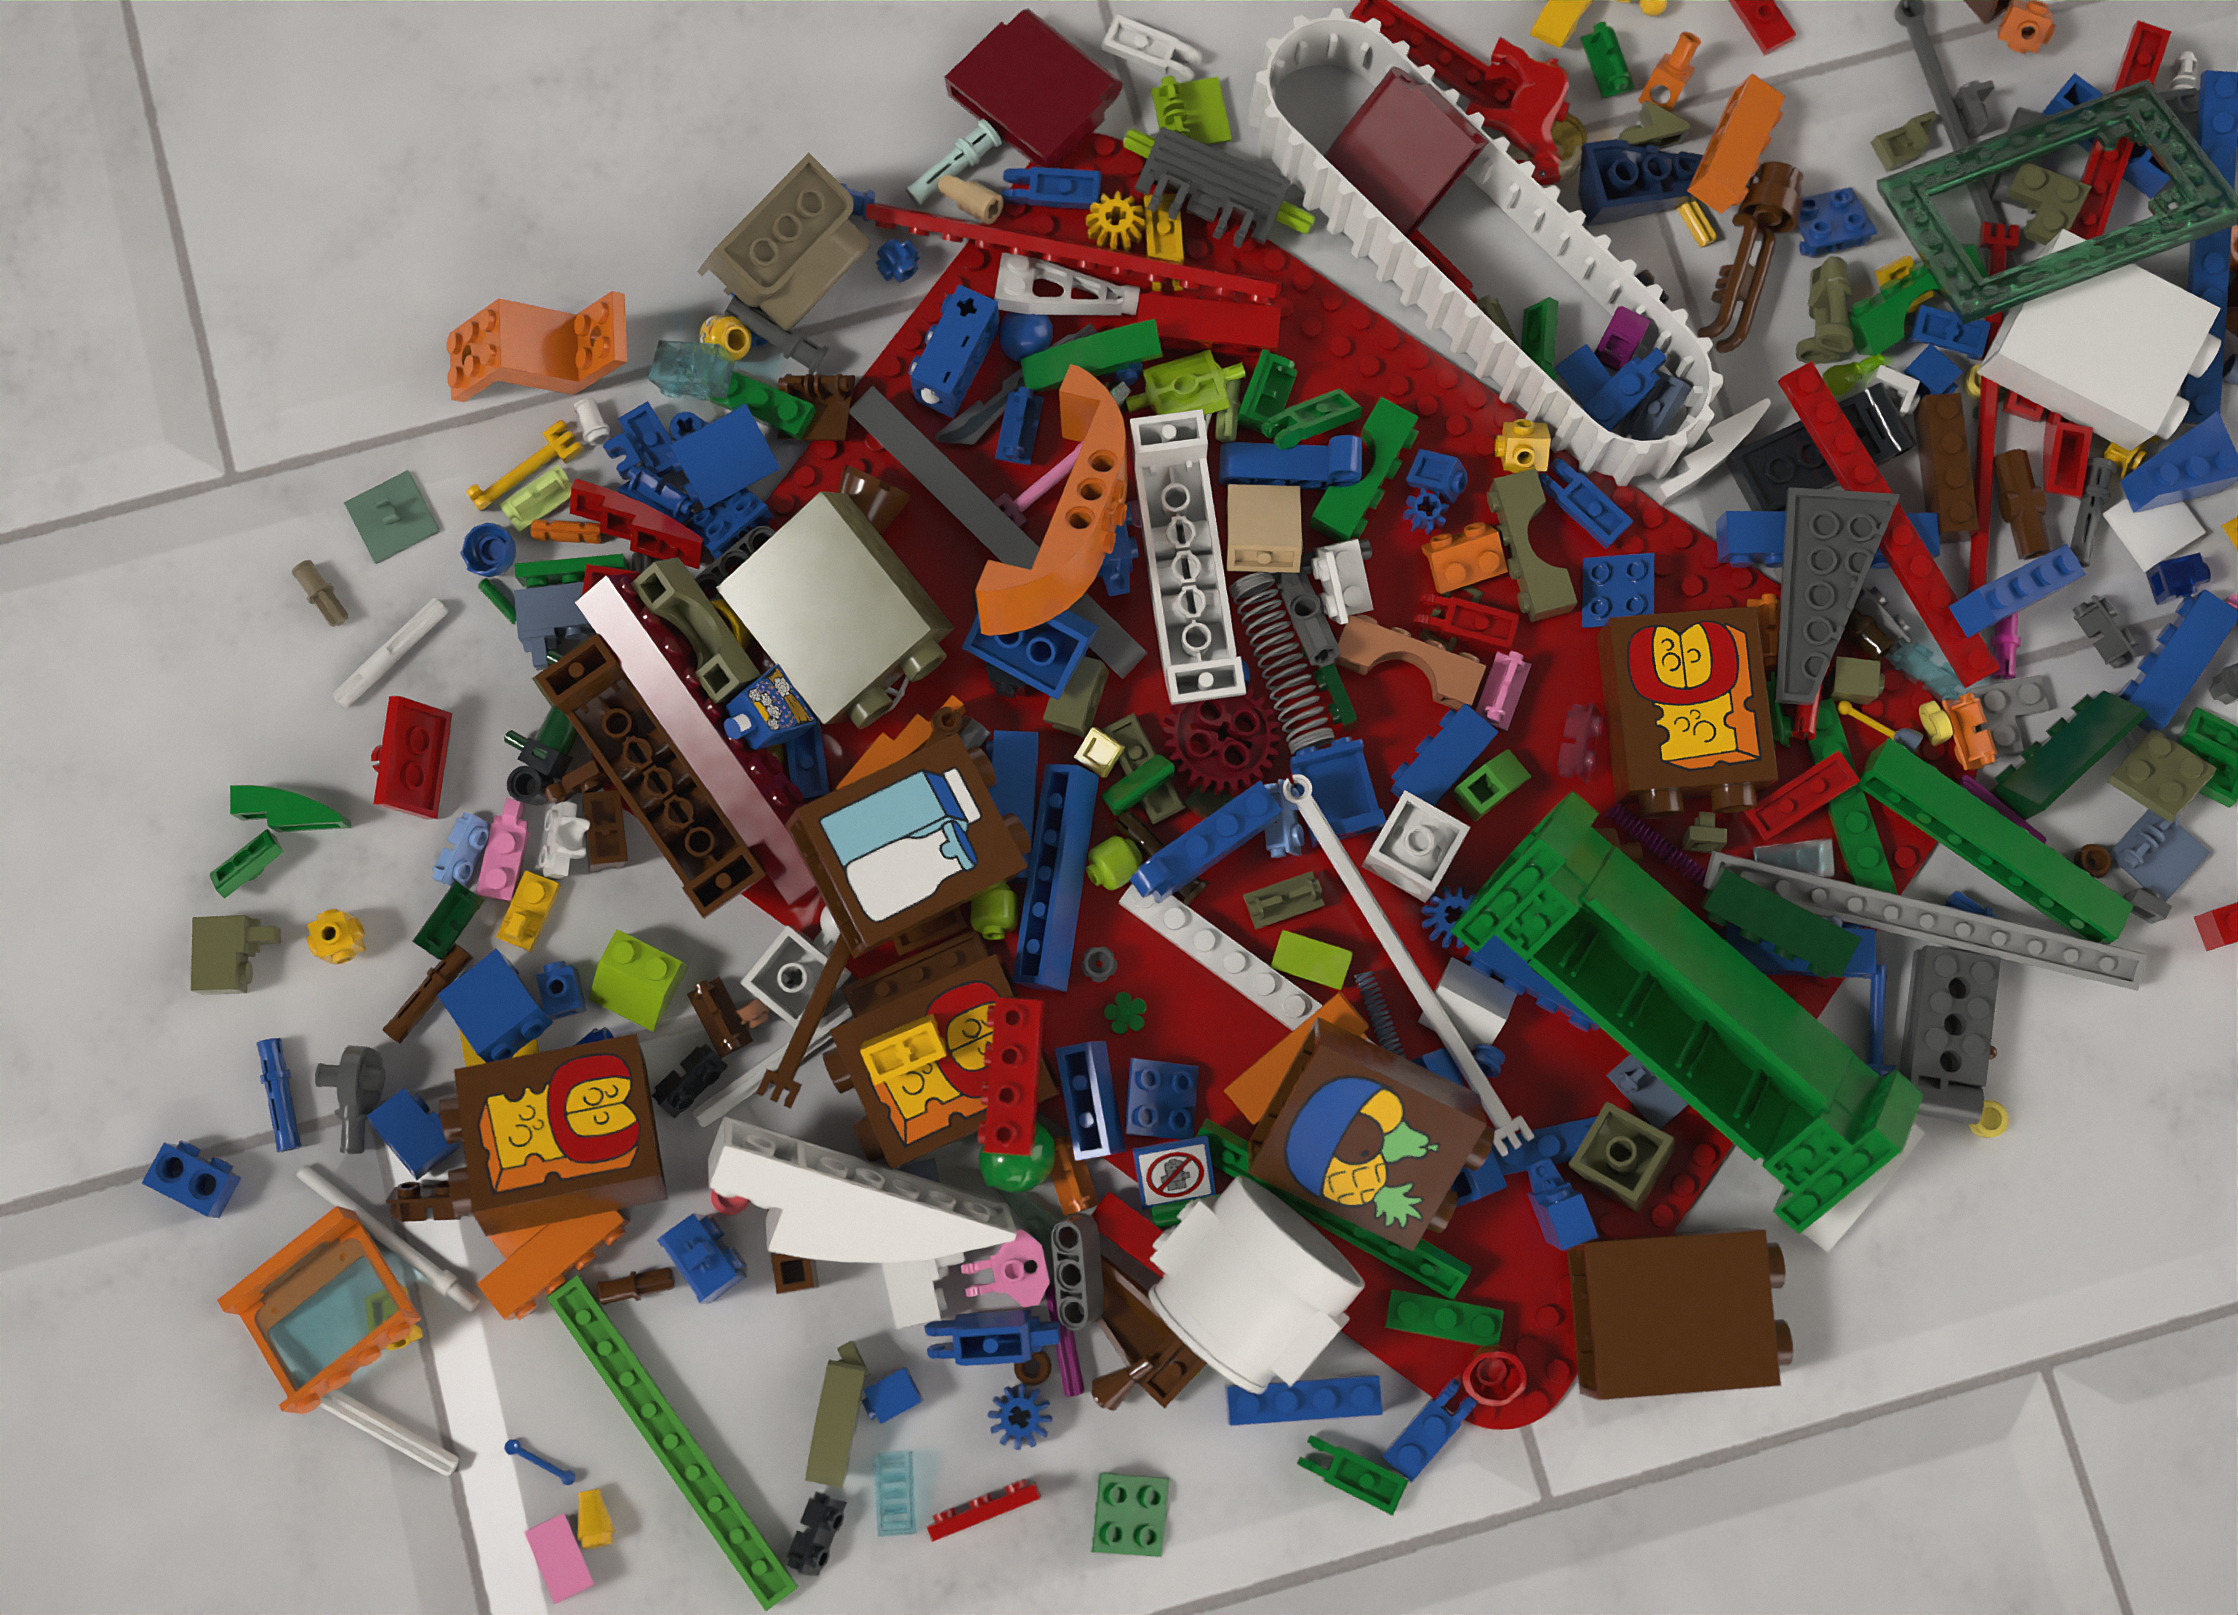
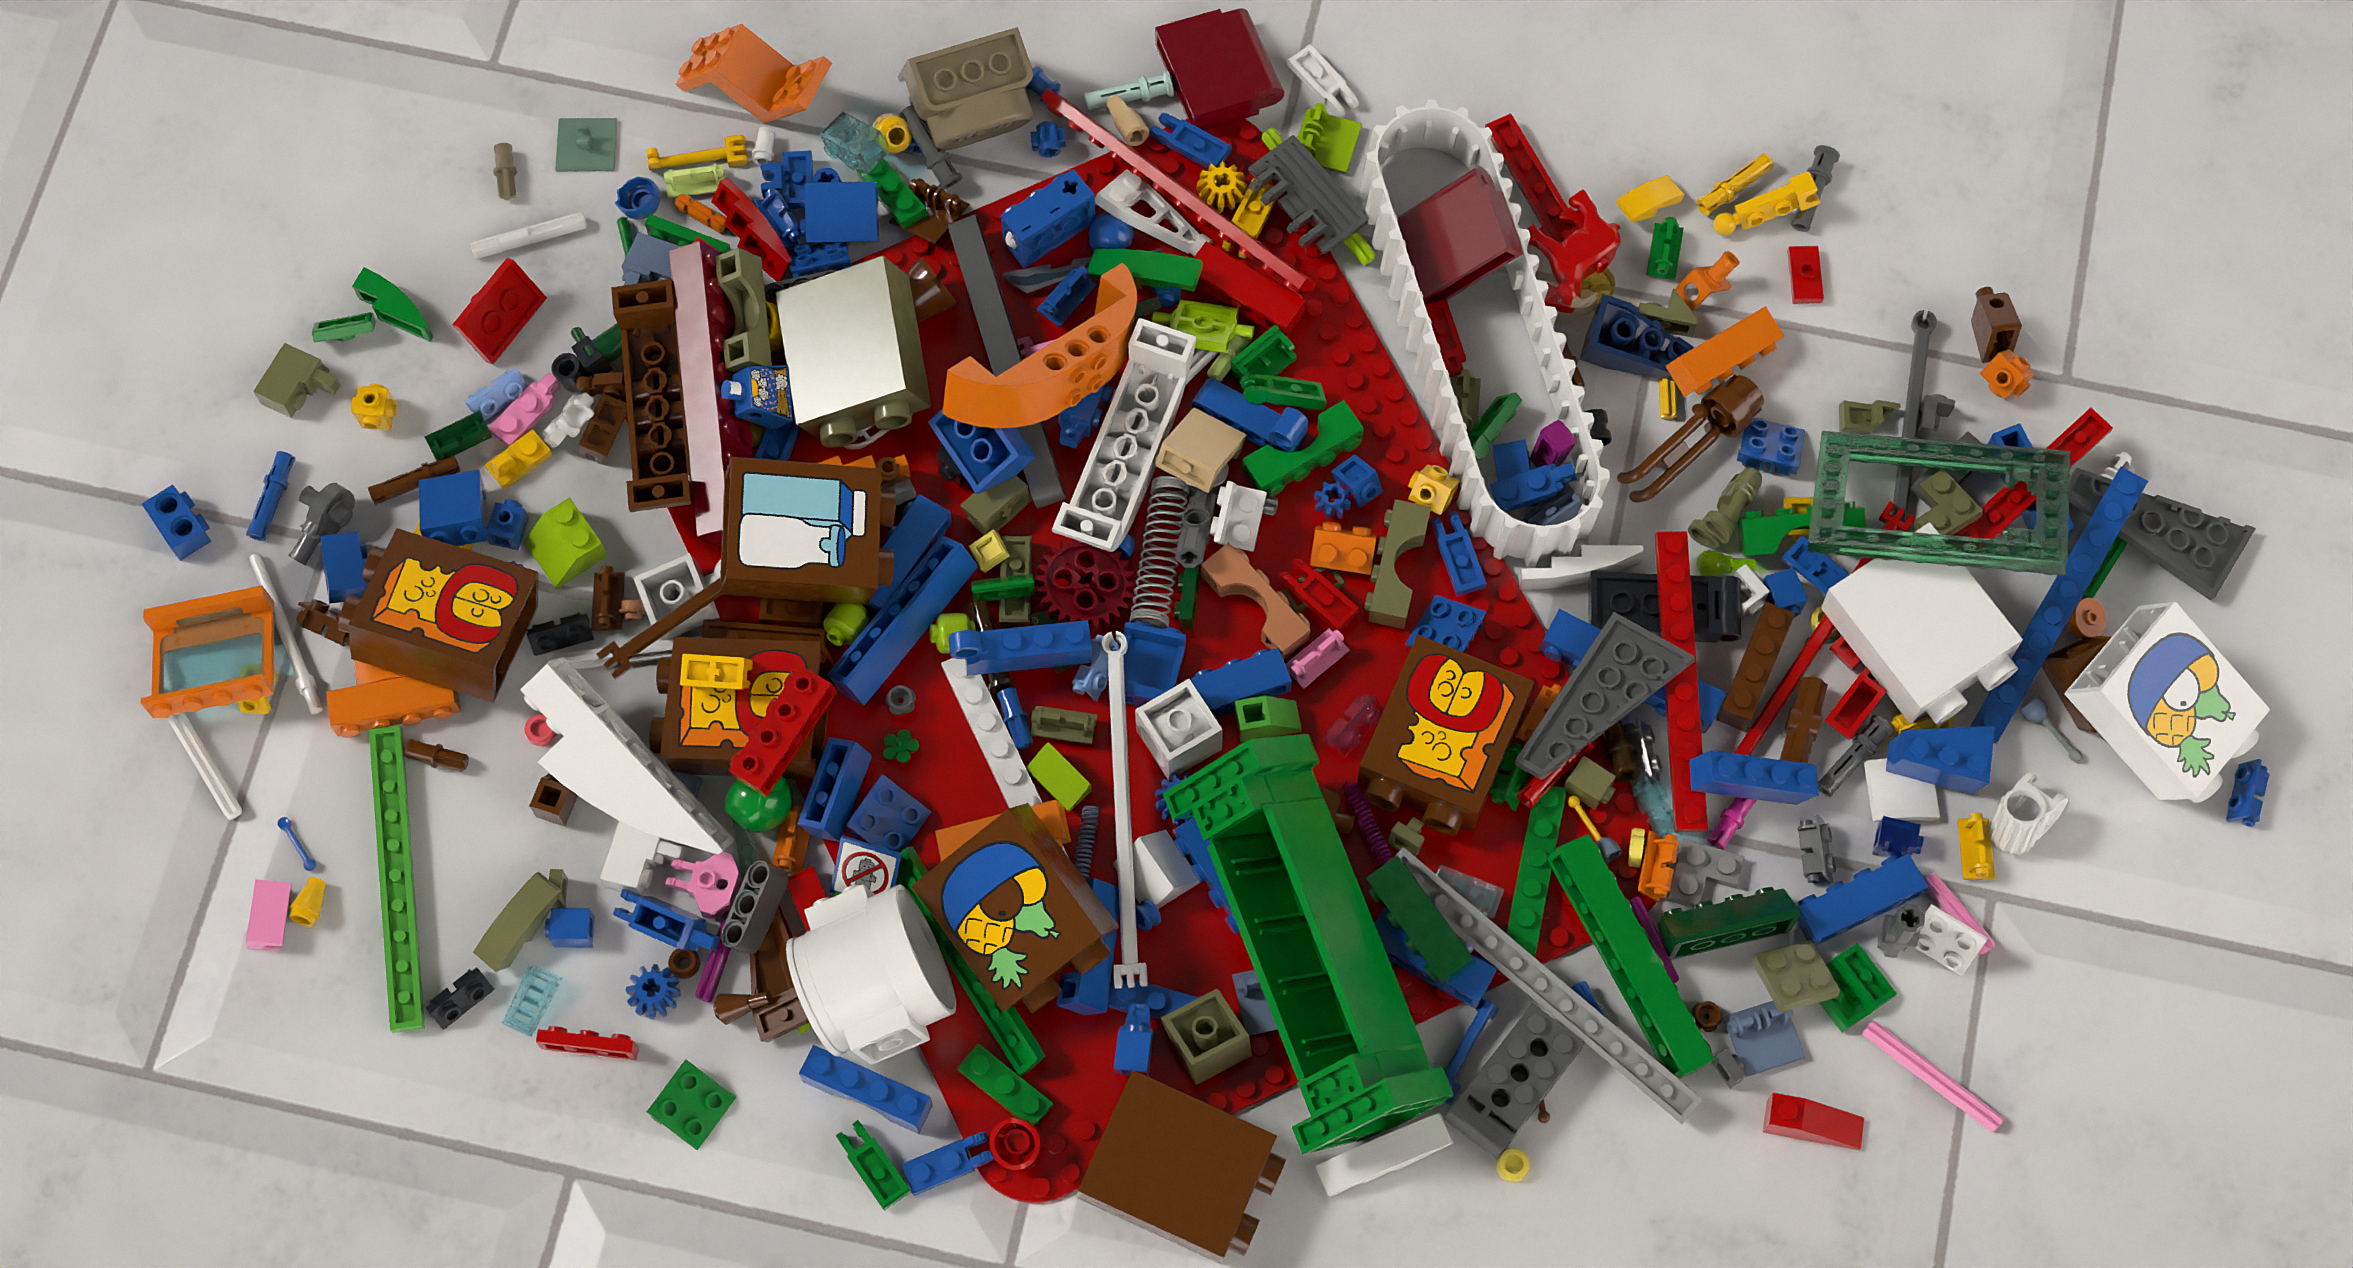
camera: 30 degrees right, 10 degrees down
(703, 1256) = (494, 756): blue hinge -> none
(1230, 920) = (1015, 718): none -> blue axle
(1802, 796) = (1499, 845): red plate -> none

